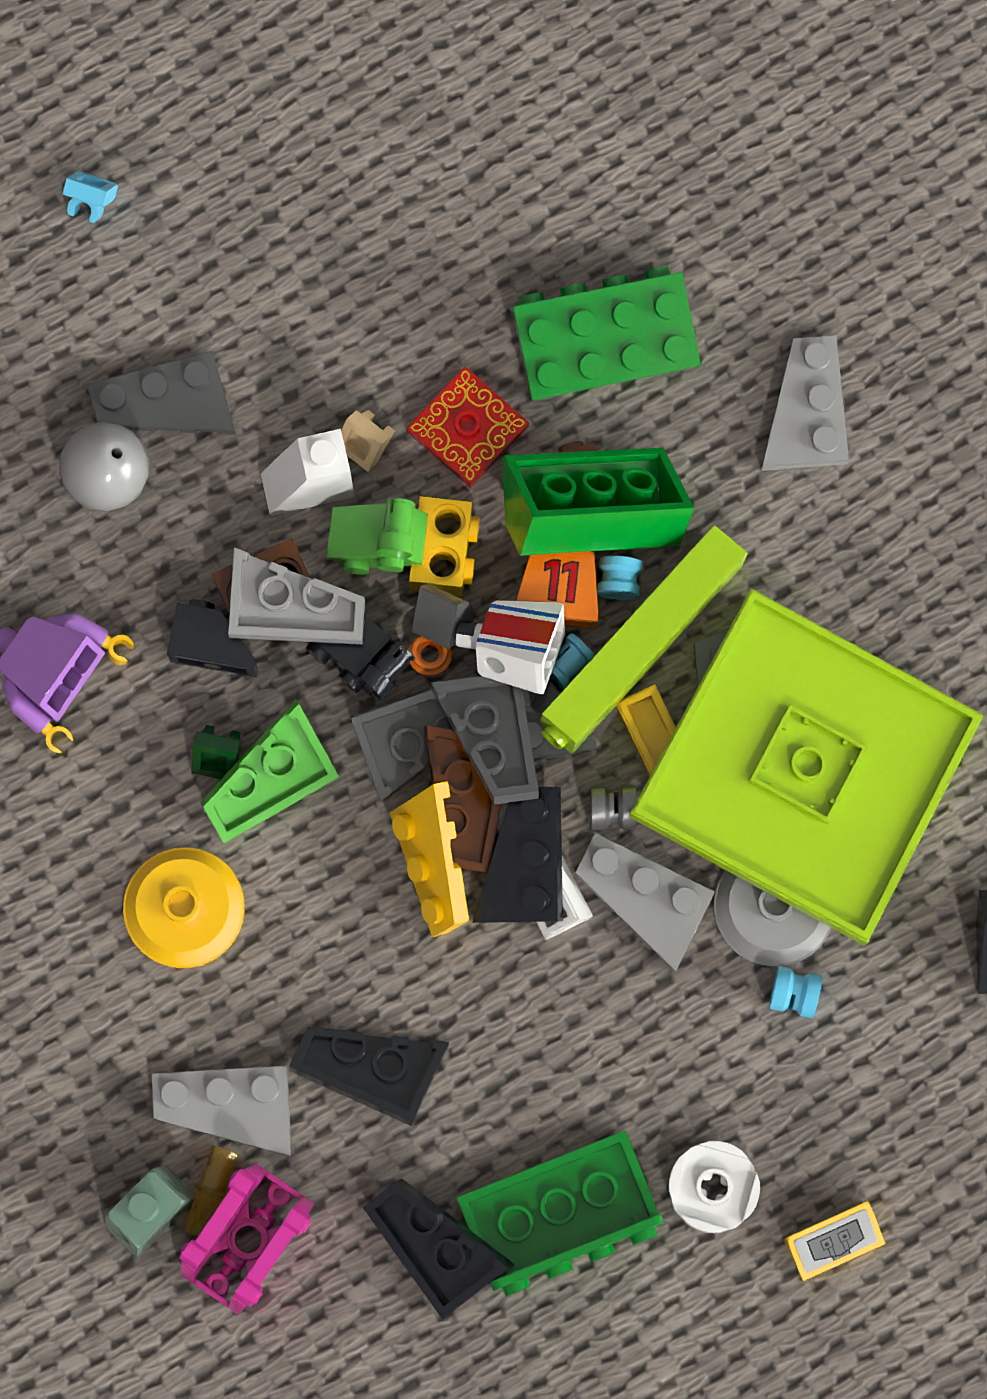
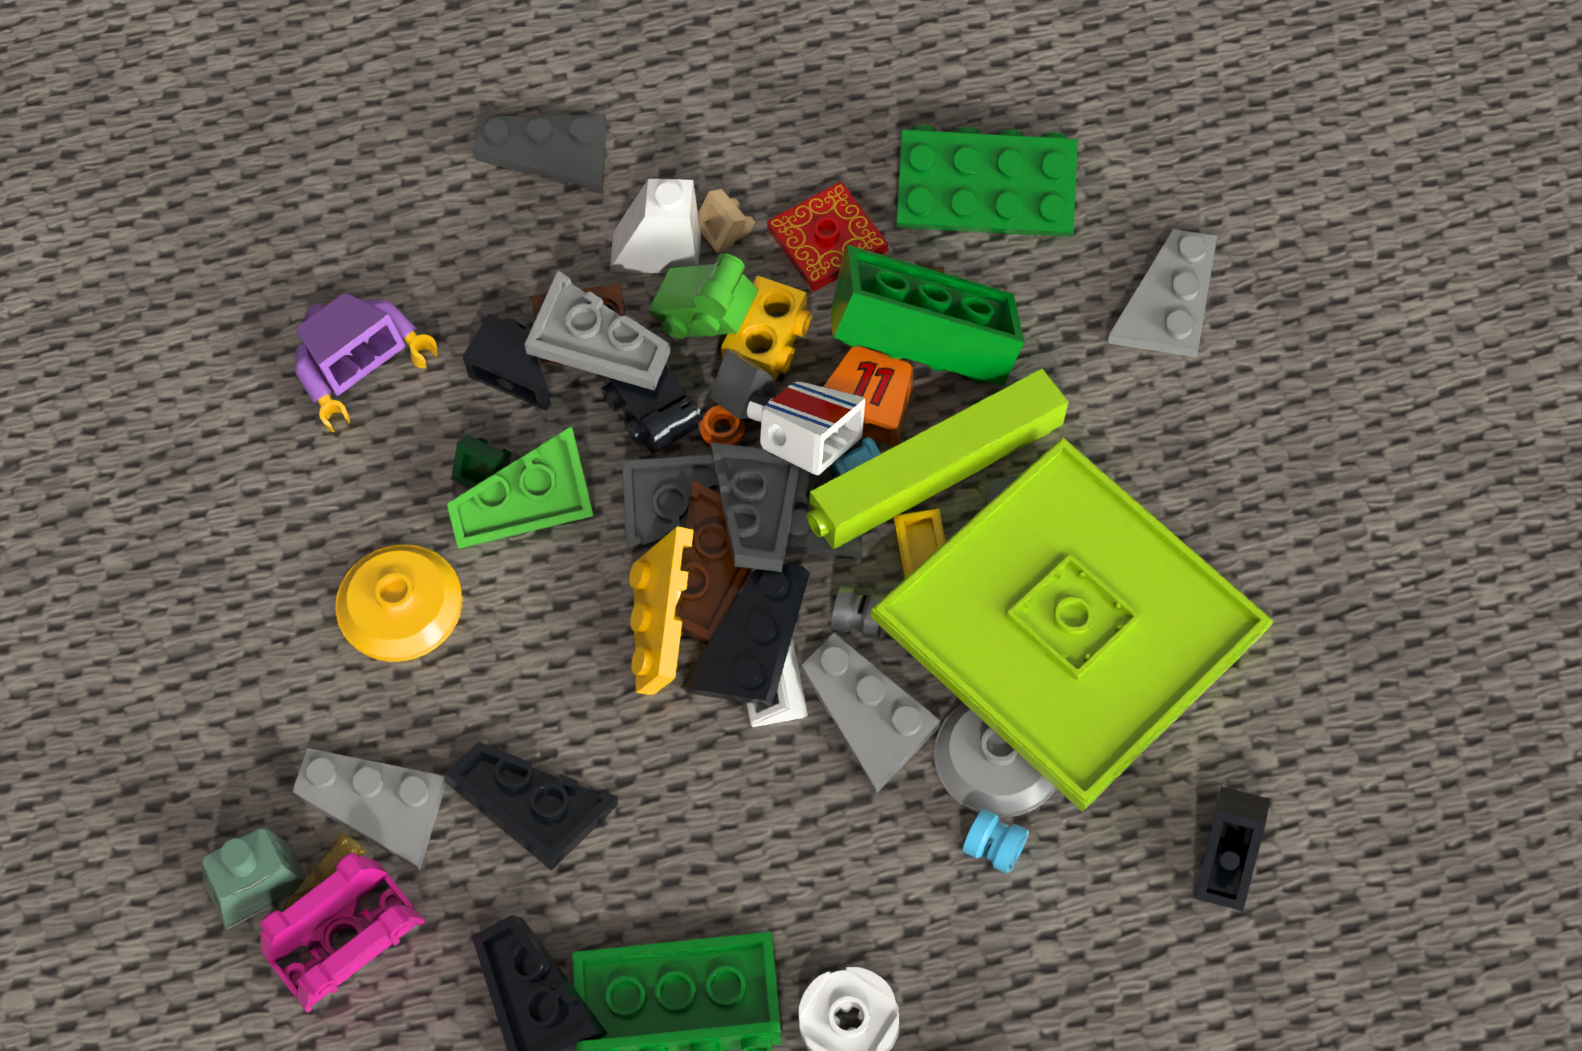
camera: 20 degrees right, 15 degrees down
(104, 466) = (464, 182): light grey piece -> none
(619, 578) = (933, 399): medium azure wheel -> none

